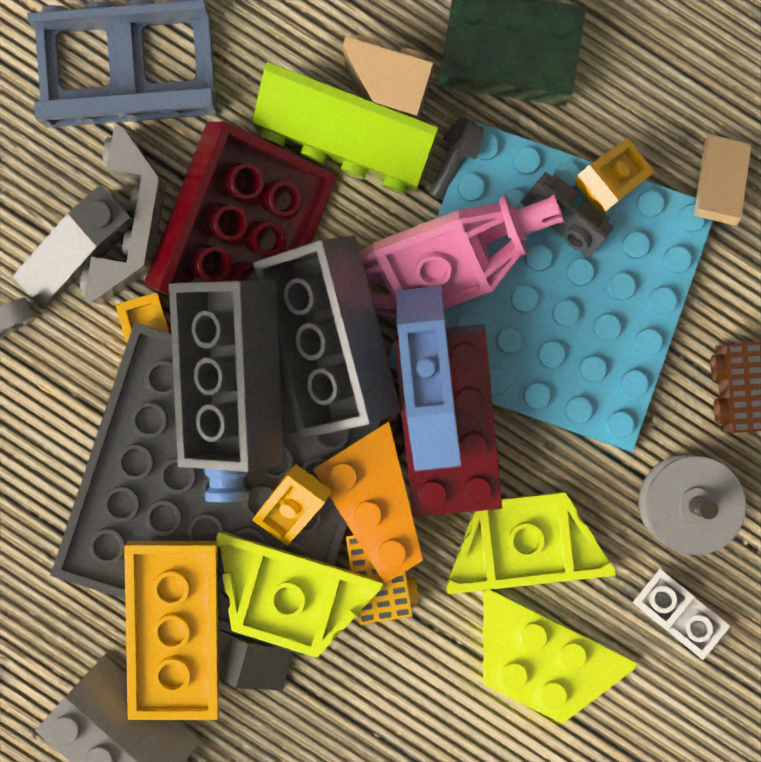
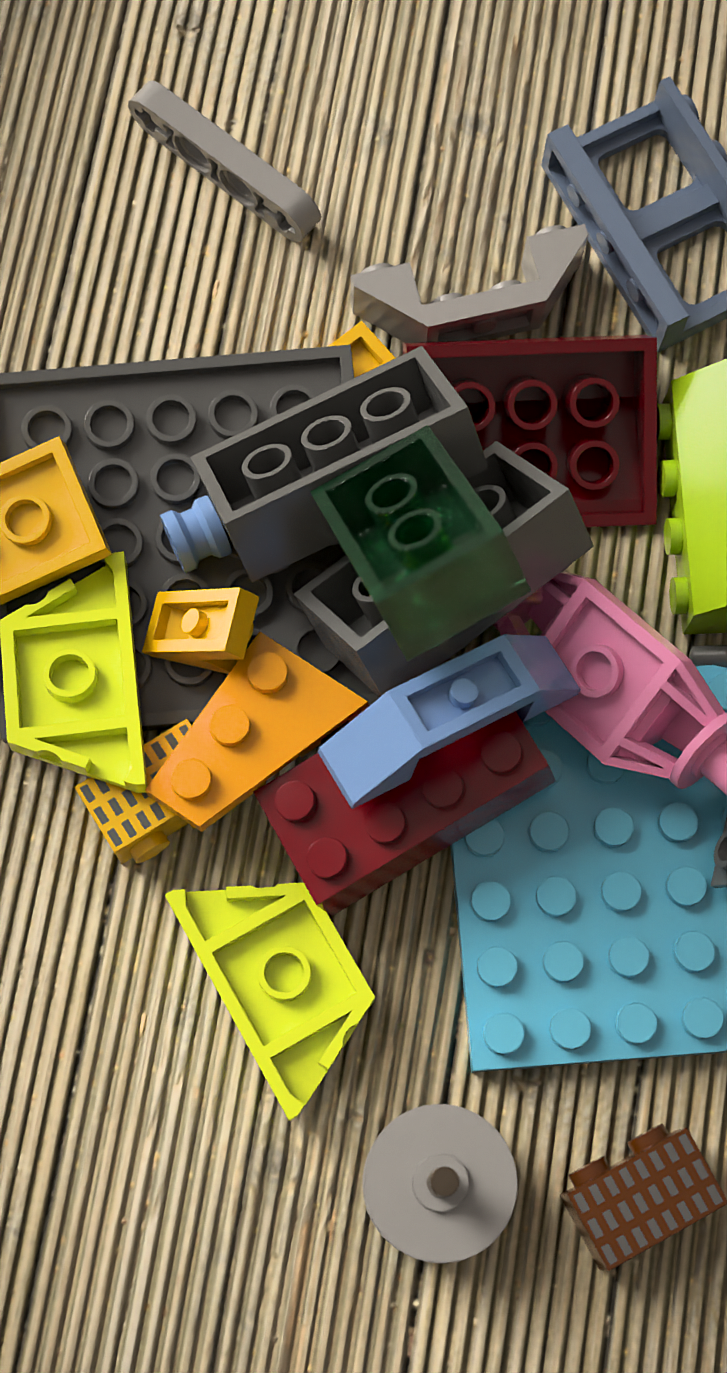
camera: 65 degrees right, 15 degrees down
(83, 233) = (442, 246): slope -> none
(321, 357) = (421, 542): none -> clear green brick
(544, 660) = (124, 1077): neon yellow wing -> none
(681, 614) = (272, 1250): white slope -> none

